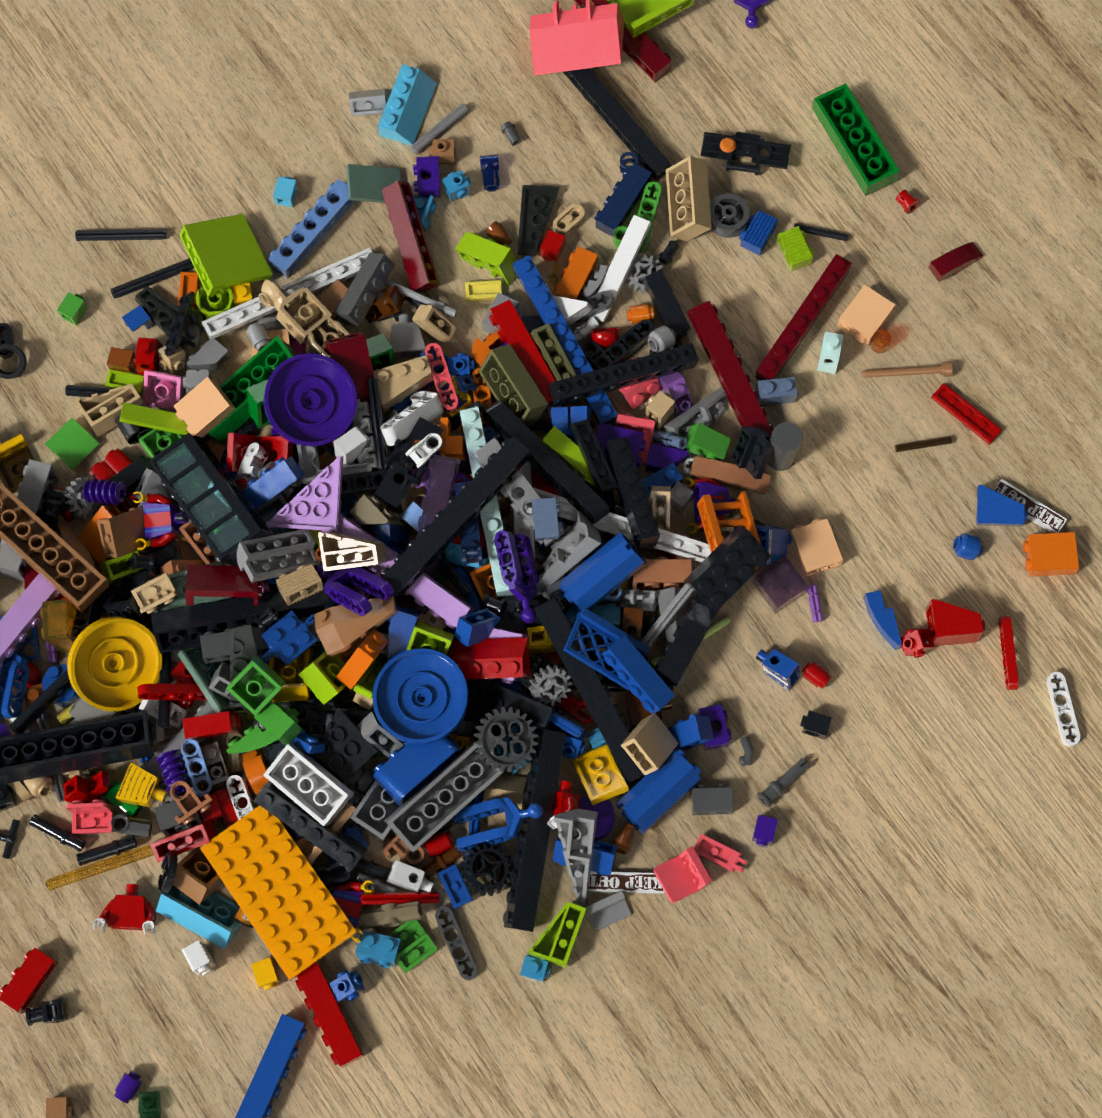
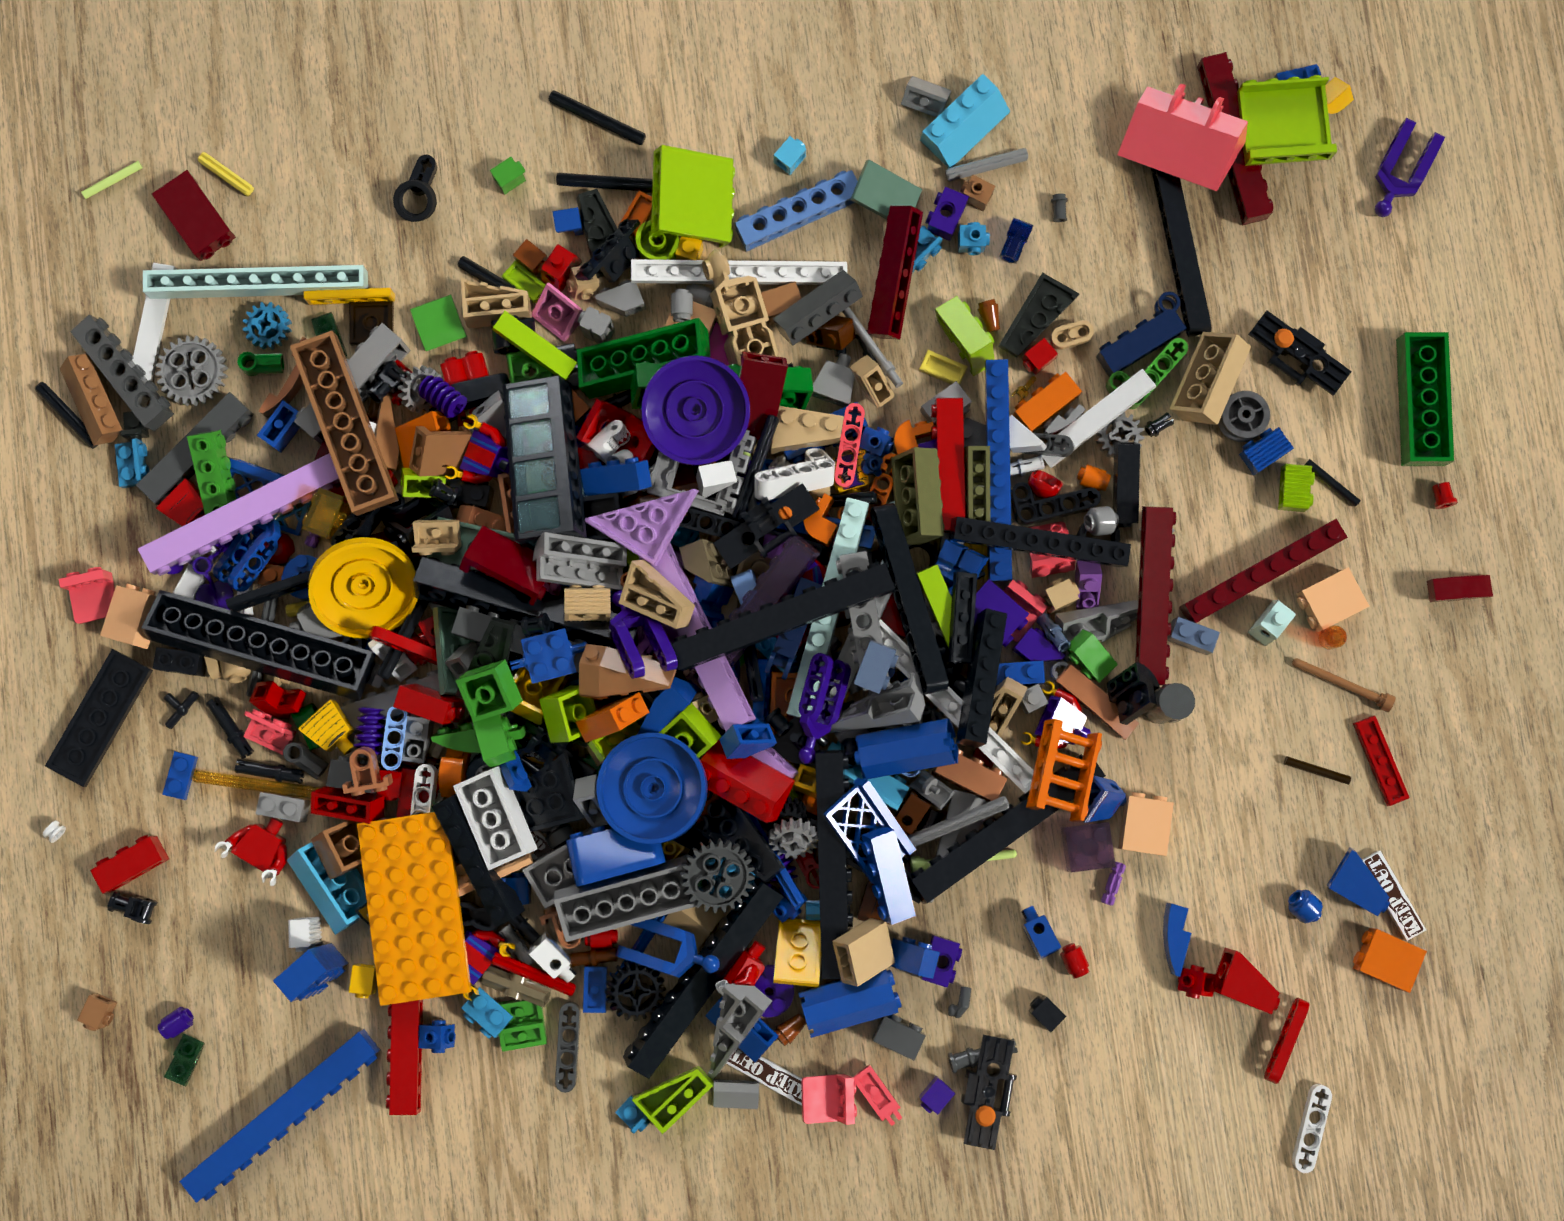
camera: 25 degrees right, 10 degrees up
(34, 891) = (180, 775): none -> blue plate
(132, 871) = (283, 807): none -> light grey brick
(169, 868) = (312, 834): black tile -> none
(204, 407) = (585, 357): light nougat brick -> none
(221, 980) = (311, 972): none -> blue brick
(422, 451) = (785, 526): white piece -> none
(727, 568) = (1039, 813): black piece -> none
(797, 808) = (981, 1091): none -> black piece

